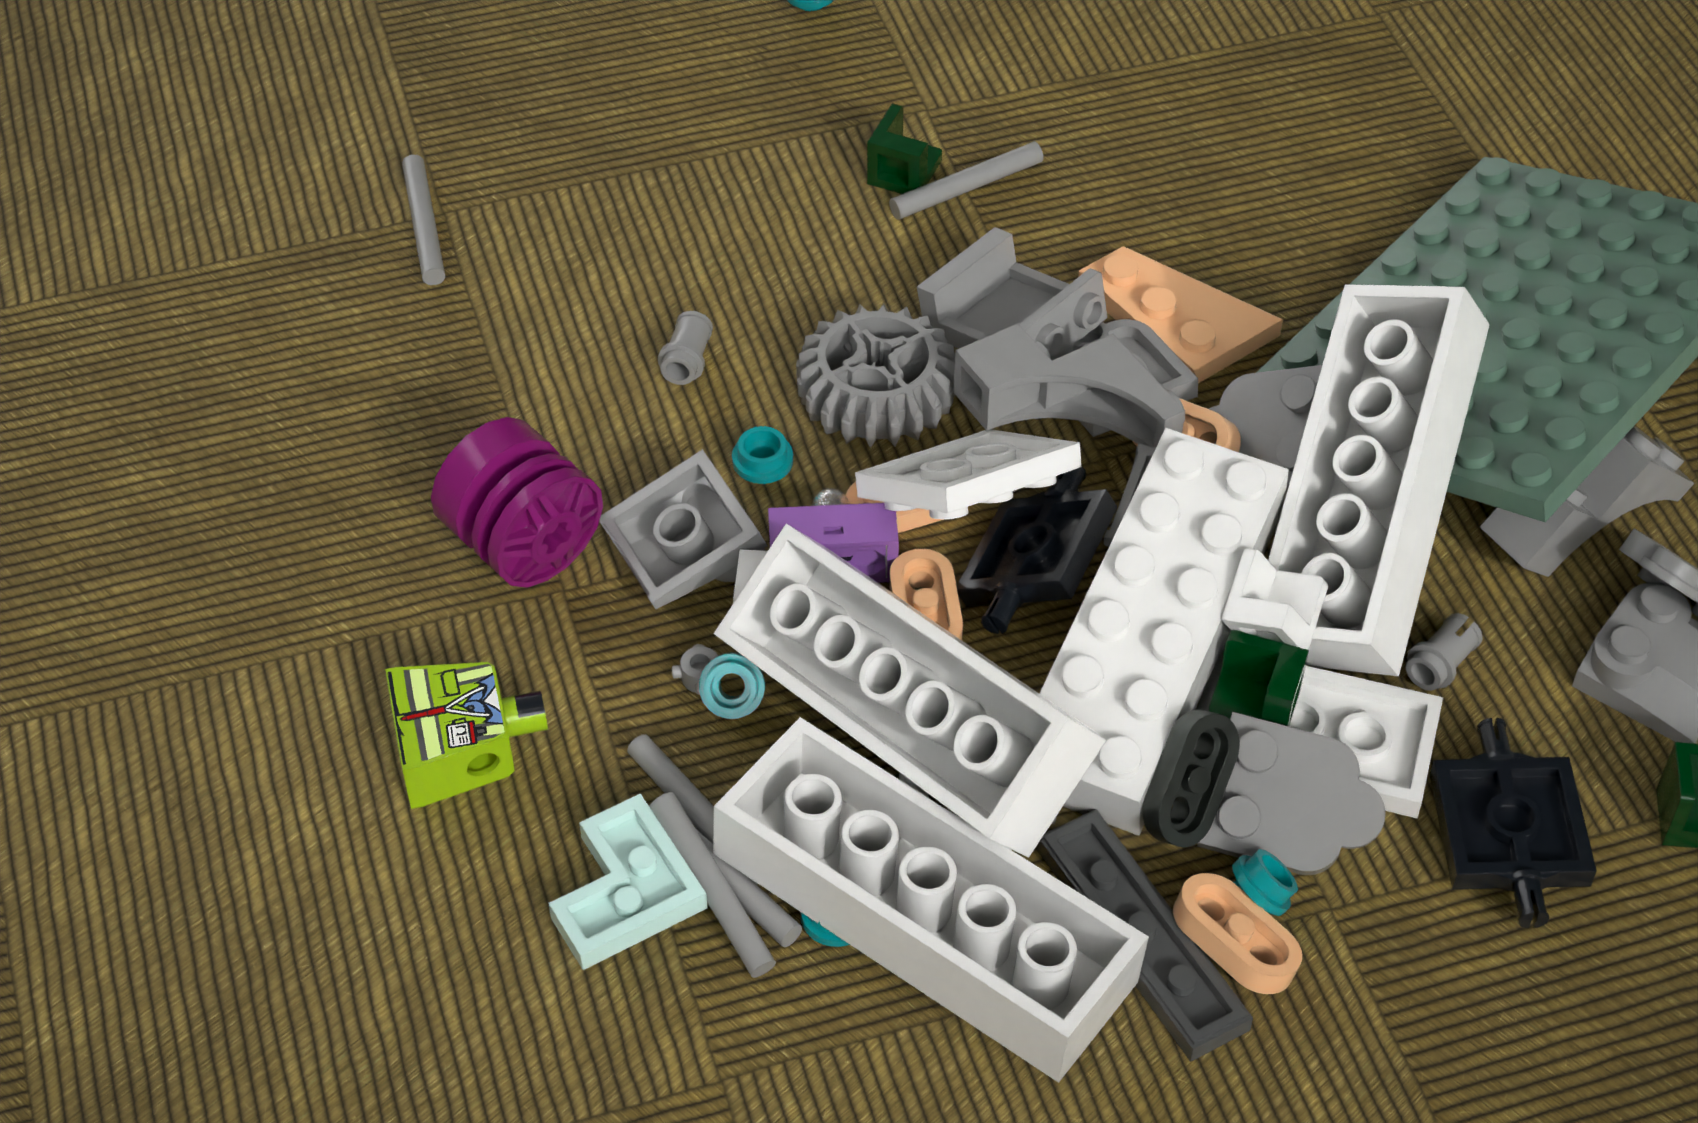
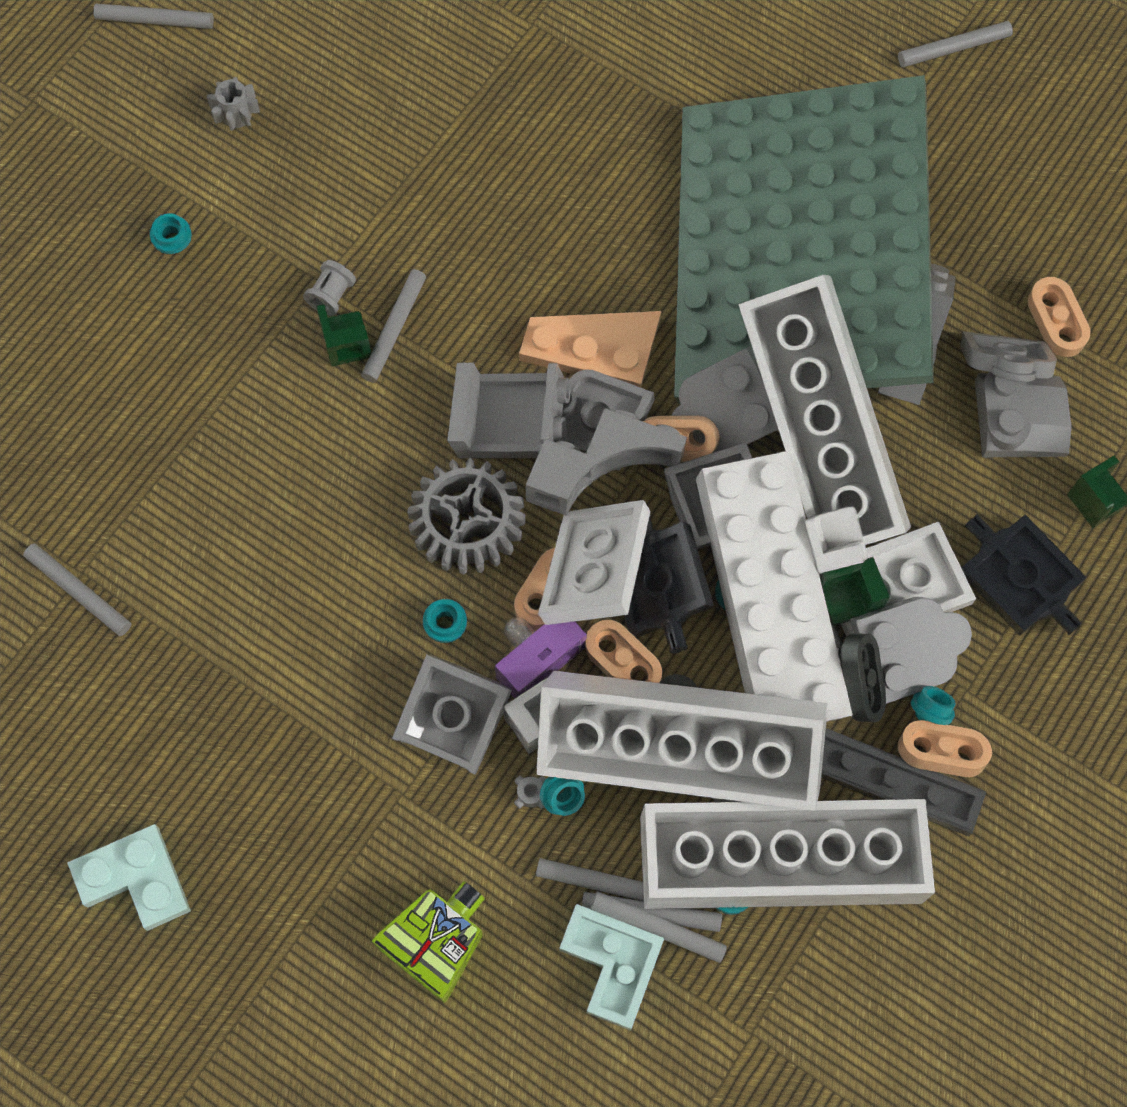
camera: 40 degrees left, 20 degrees up
(234, 484) = (136, 865): none -> light aqua plate
(516, 501) = (344, 769): magenta wheel -> none
(682, 357) = (337, 582): light grey pin -> none
(929, 107) = (329, 286): none -> light grey bush
(1435, 661) = (913, 486): light grey pin -> none

